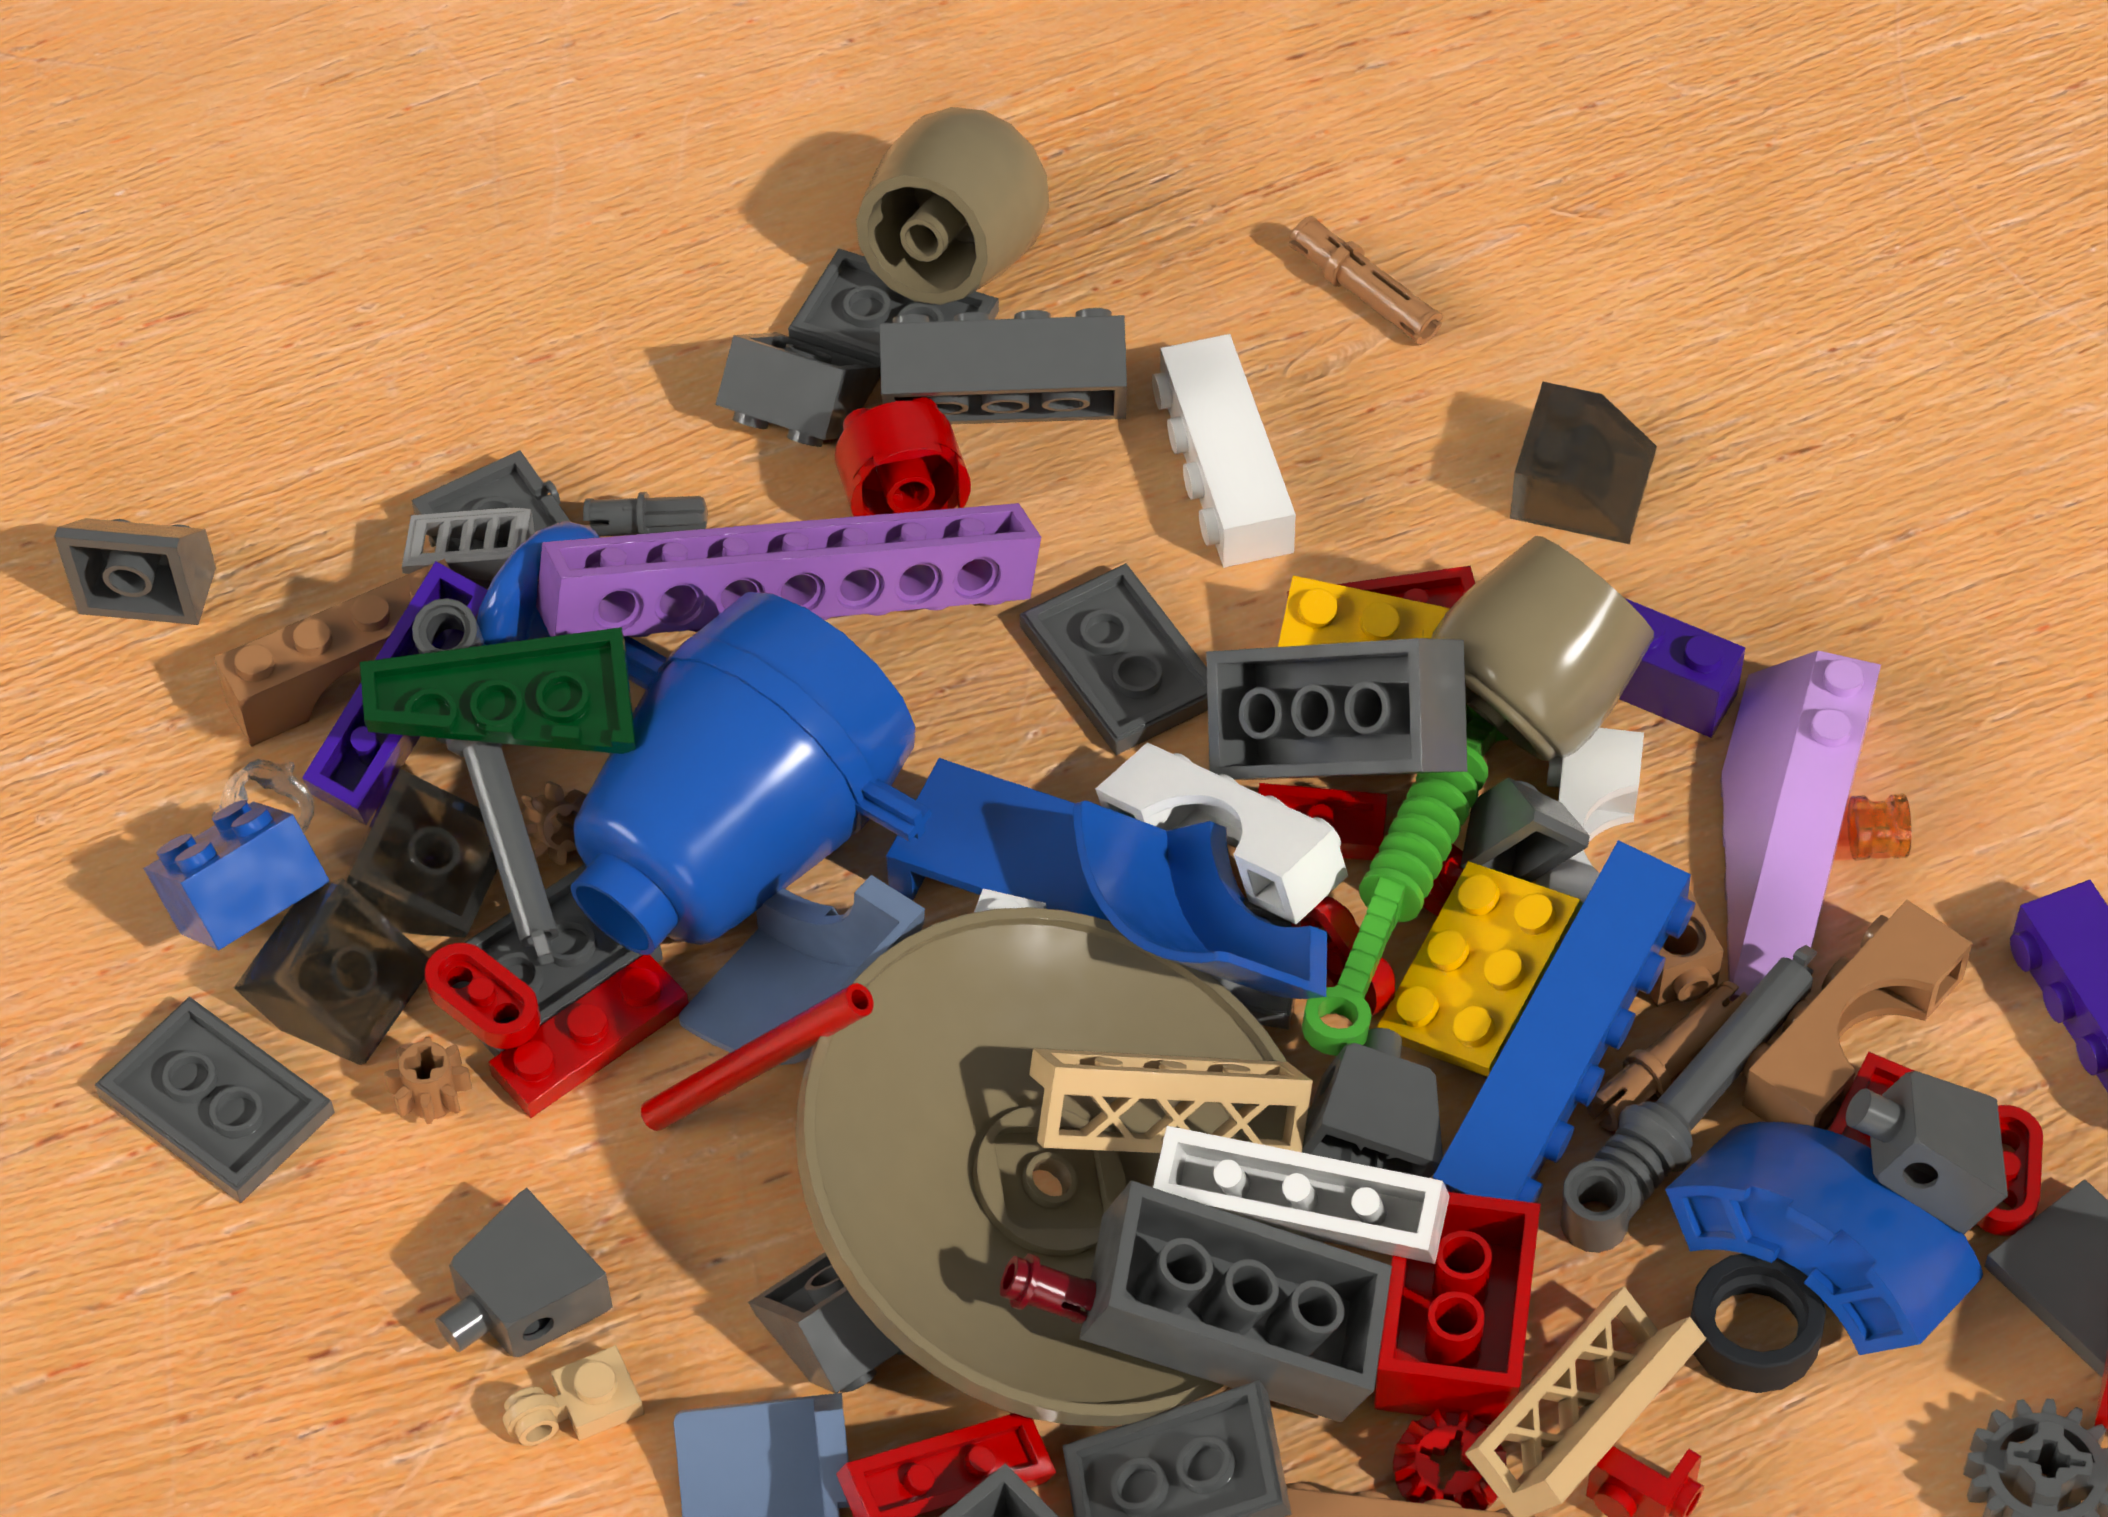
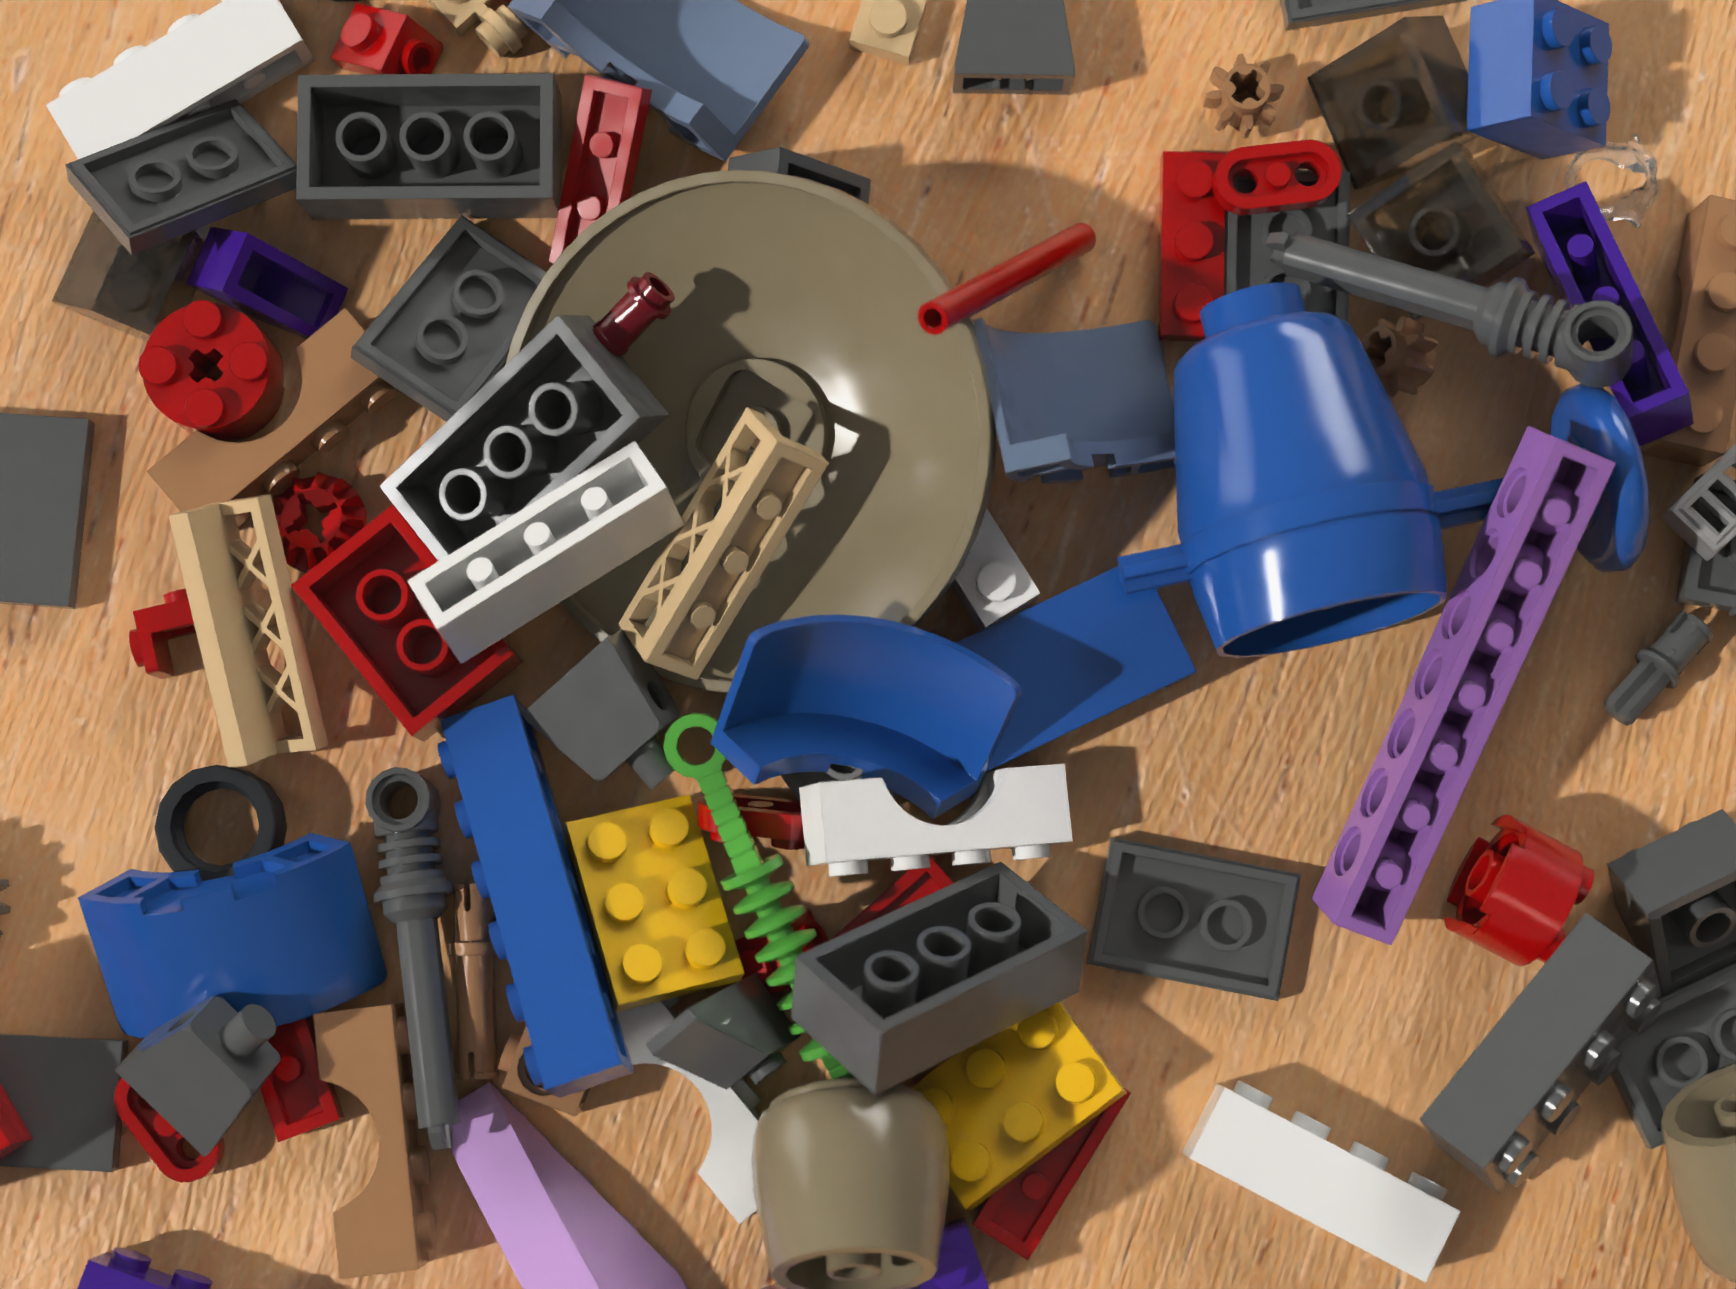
camera: 130 degrees right, 30 degrees up
(522, 692) = (1473, 345): dark green wing -> none

